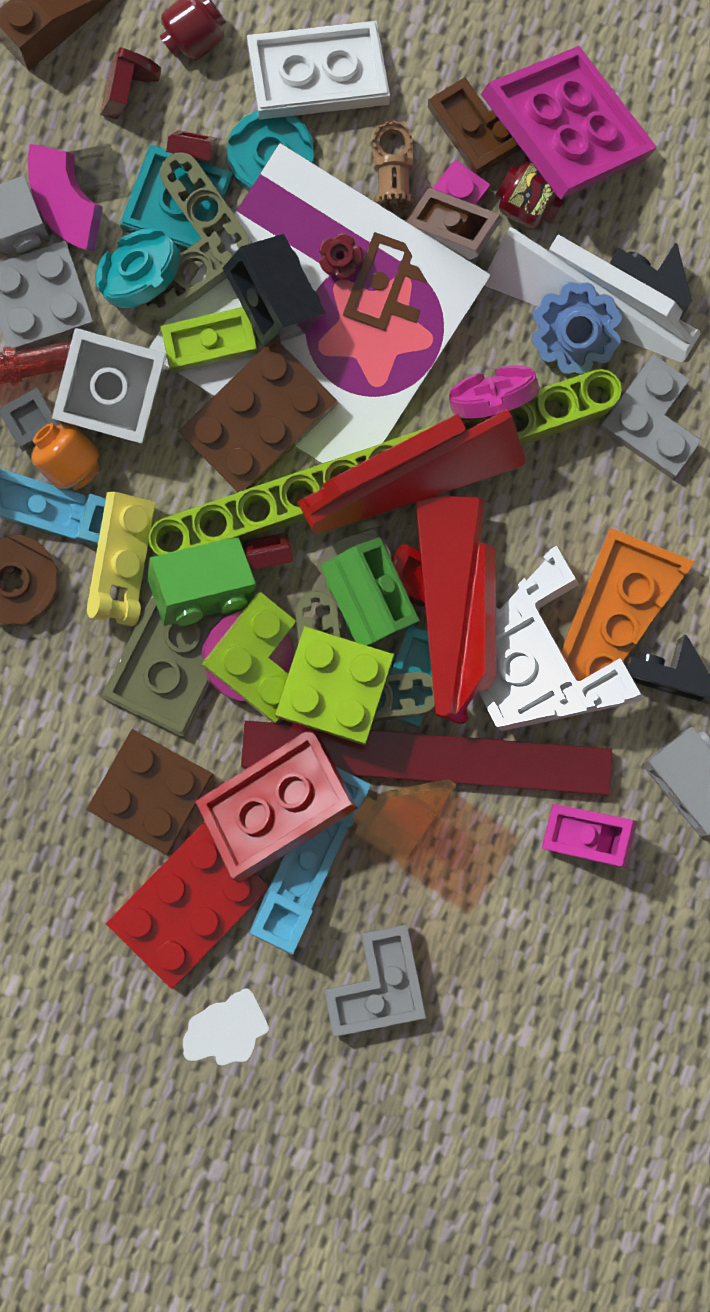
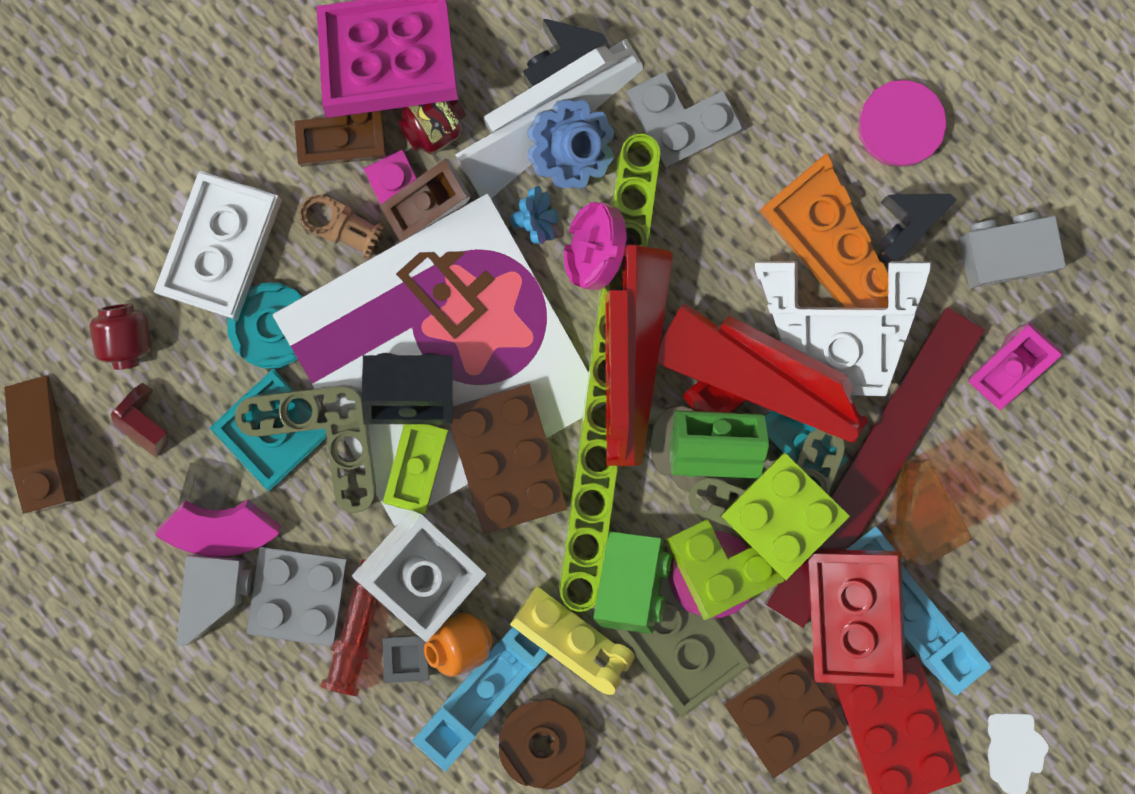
camera: 60 degrees left, 5 degrees up
(138, 268) = (321, 496): teal tile -> none
(194, 144) = (231, 391): dark red tile -> none
(268, 551) = (631, 510): dark red tile -> none
(346, 266) = (392, 318): dark red plate -> none
(390, 994) = (1058, 604): light grey plate -> none
(494, 331) = (536, 216): none -> dark azure plant

